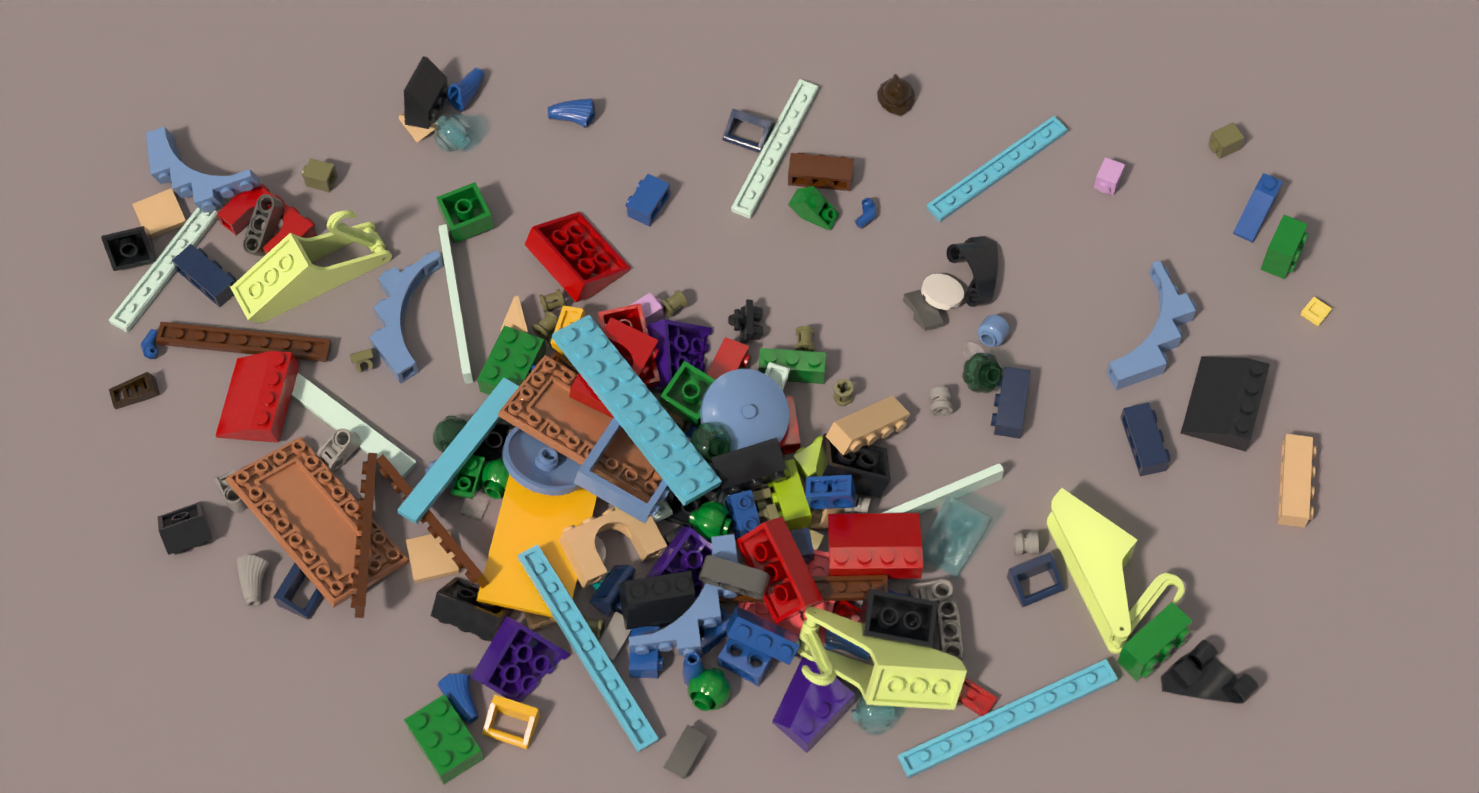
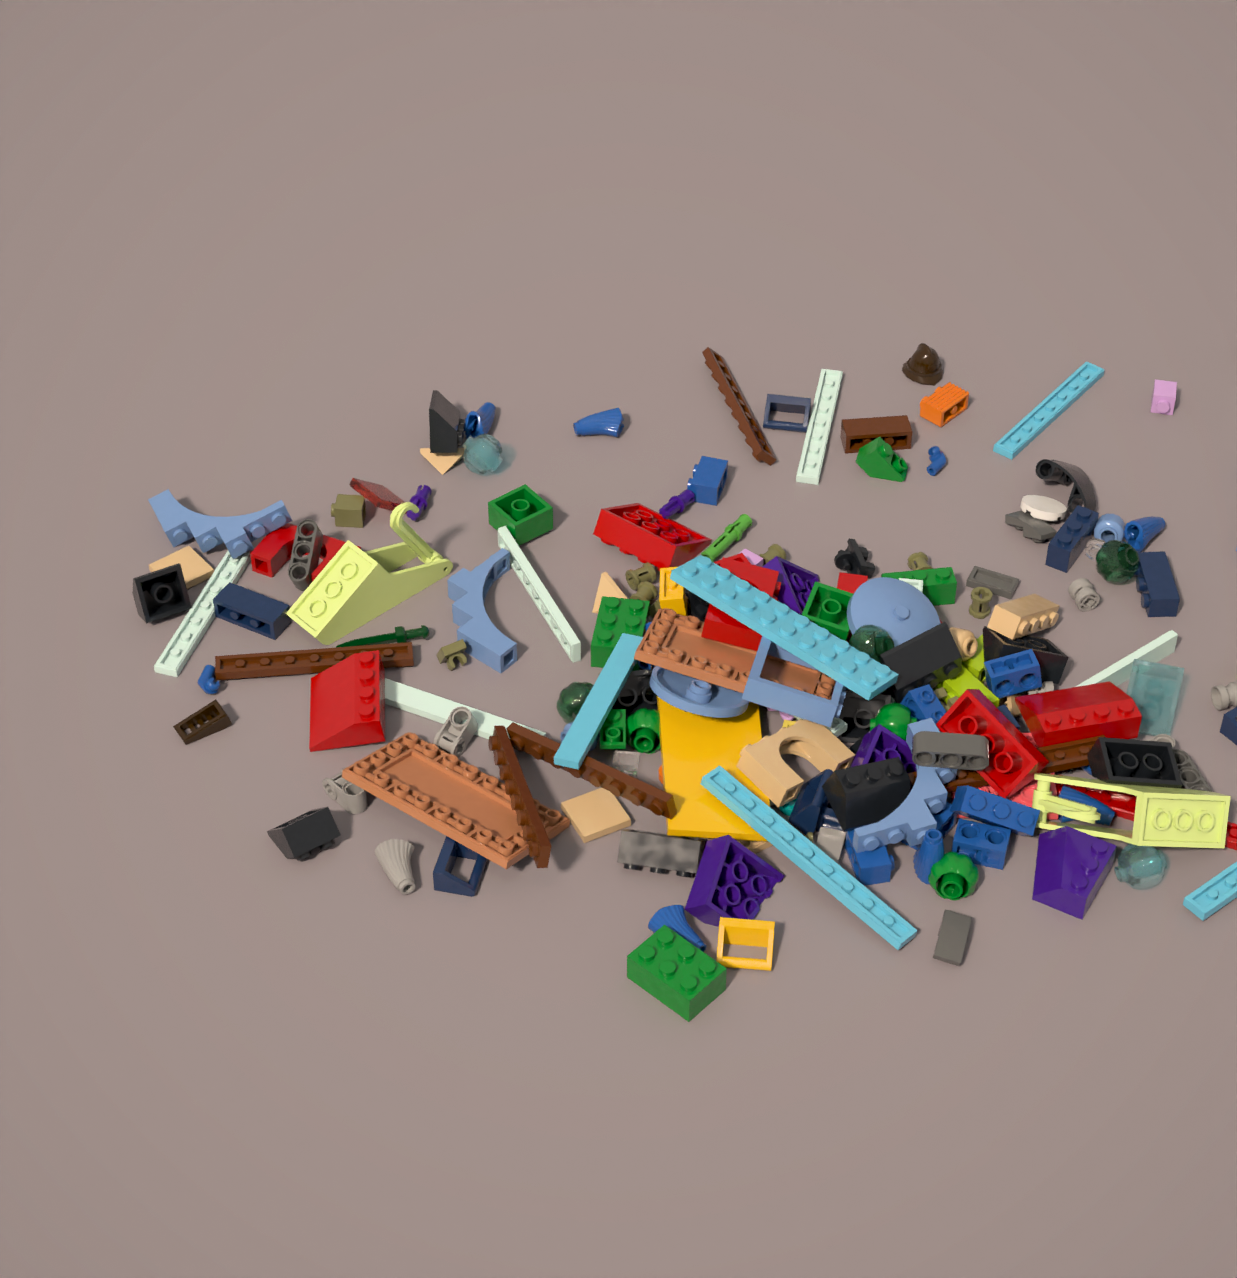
camera: 15 degrees left, 20 degrees down
(324, 328) = (399, 636): none -> dark green sword
(348, 165) = (376, 494): none -> clear red tile
(383, 175) = (420, 500): none -> dark purple axle
(610, 222) = (677, 504): none -> dark purple axle
(649, 266) = (732, 533): none -> bright green pin
(706, 113) = (739, 407): none -> reddish brown plate
(796, 446) = (965, 642): none -> tan head
(866, 367) = (998, 583): none -> dark grey tile
(897, 146) = (944, 404): none -> orange brick
(953, 334) = (1071, 539): none -> dark blue brick
(1023, 337) = (1142, 530): none -> blue piece

